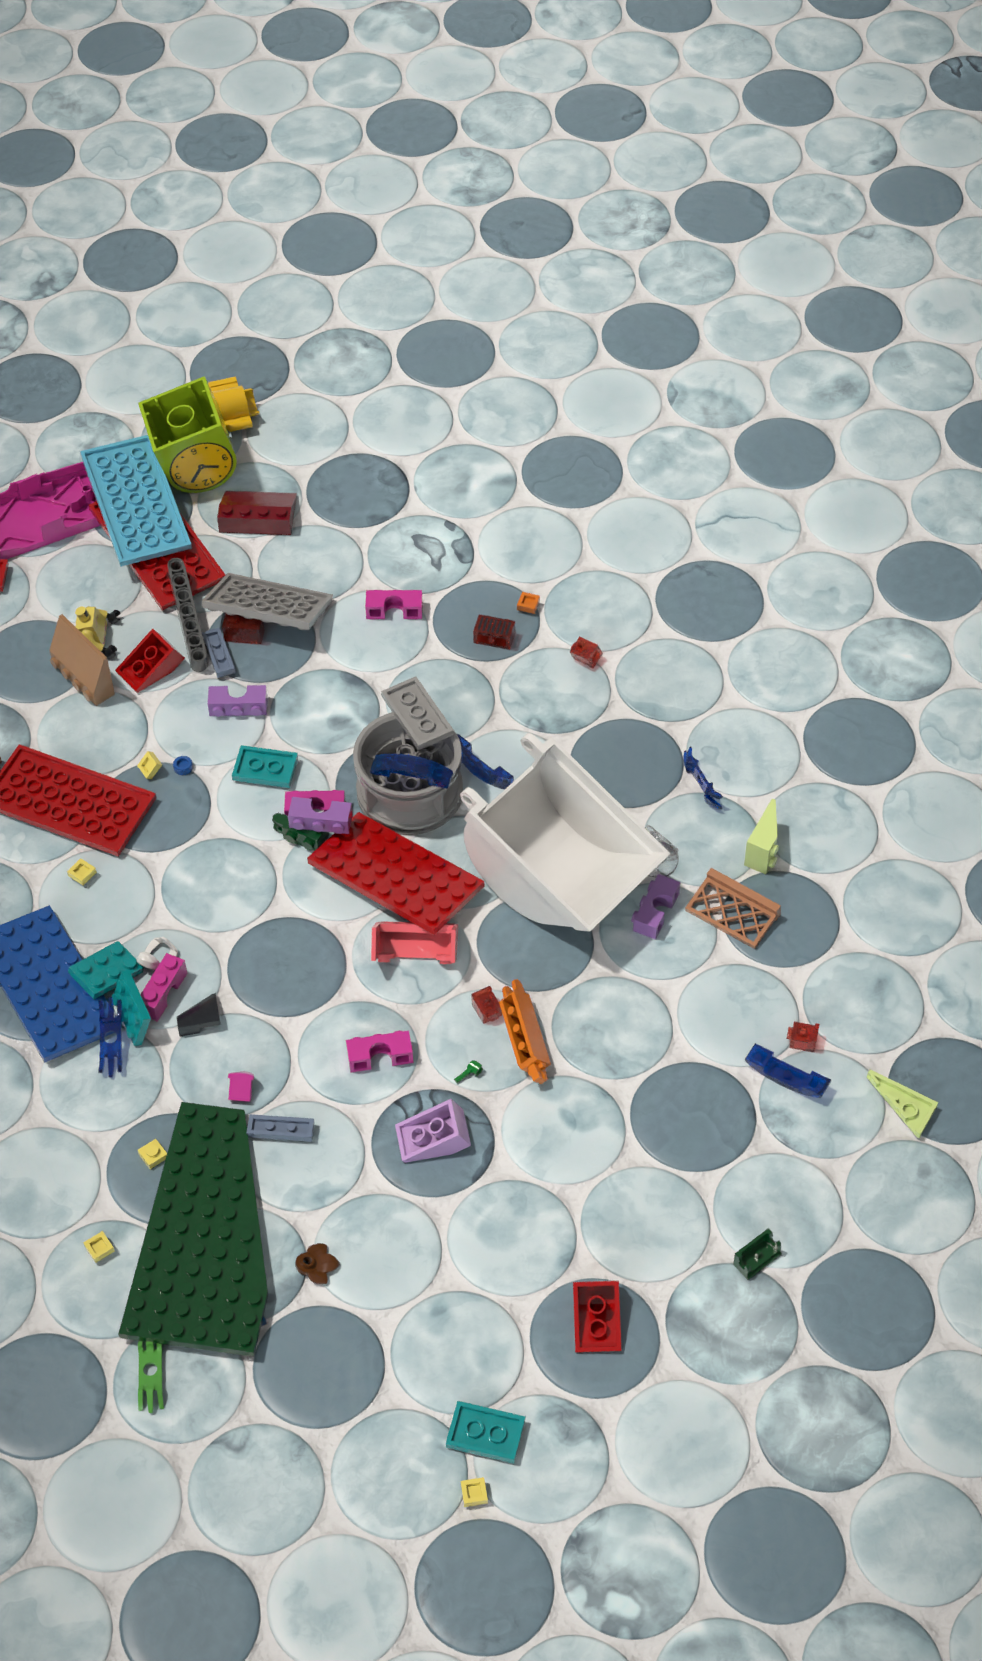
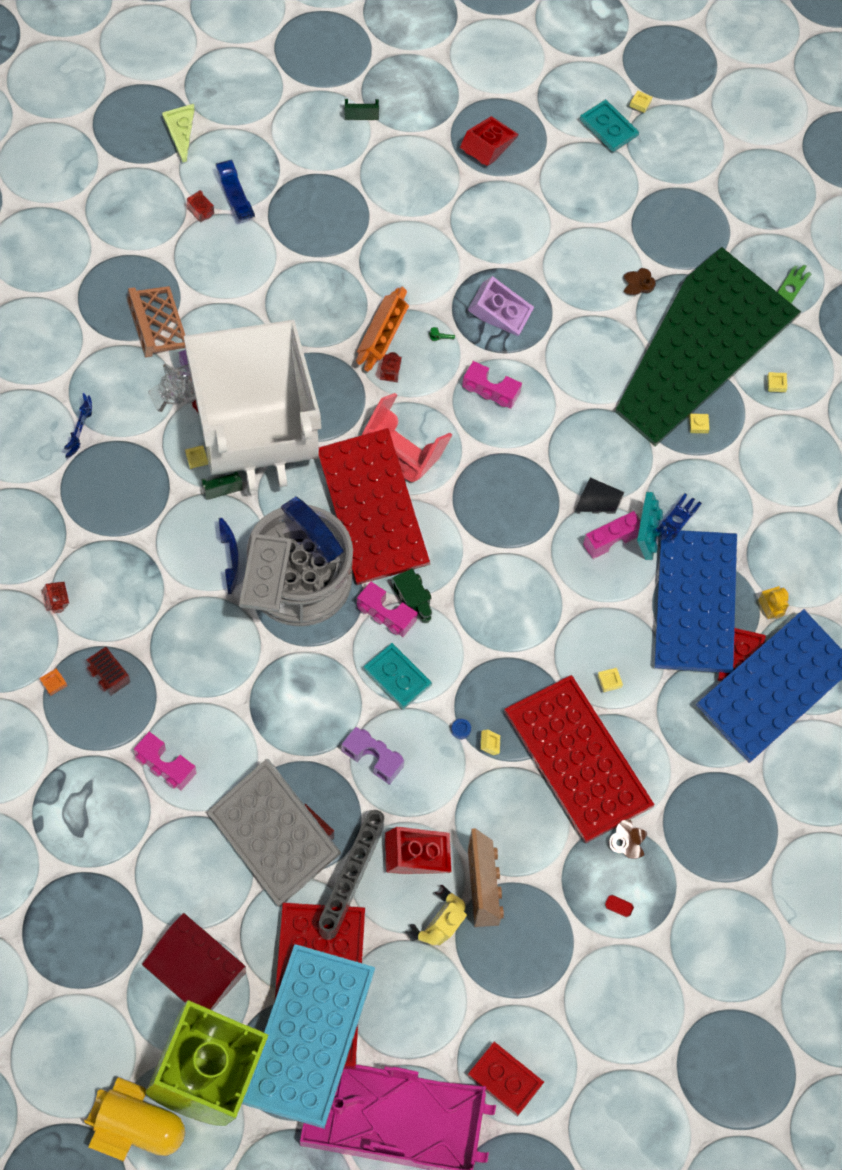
camera: 150 degrees left, 10 degrees up
(102, 969) = (646, 576): teal plate -> none
(148, 960) = (609, 563): white piece -> none
(218, 652) = (351, 820): sand blue plate -> none
(240, 1086) = (604, 426): dark pink tile -> none
(280, 1128) = (599, 379): sand blue plate -> none
(335, 819) = (387, 566): medium lavender arch -> none
(762, 842) = (86, 342): yellowish green slope -> none

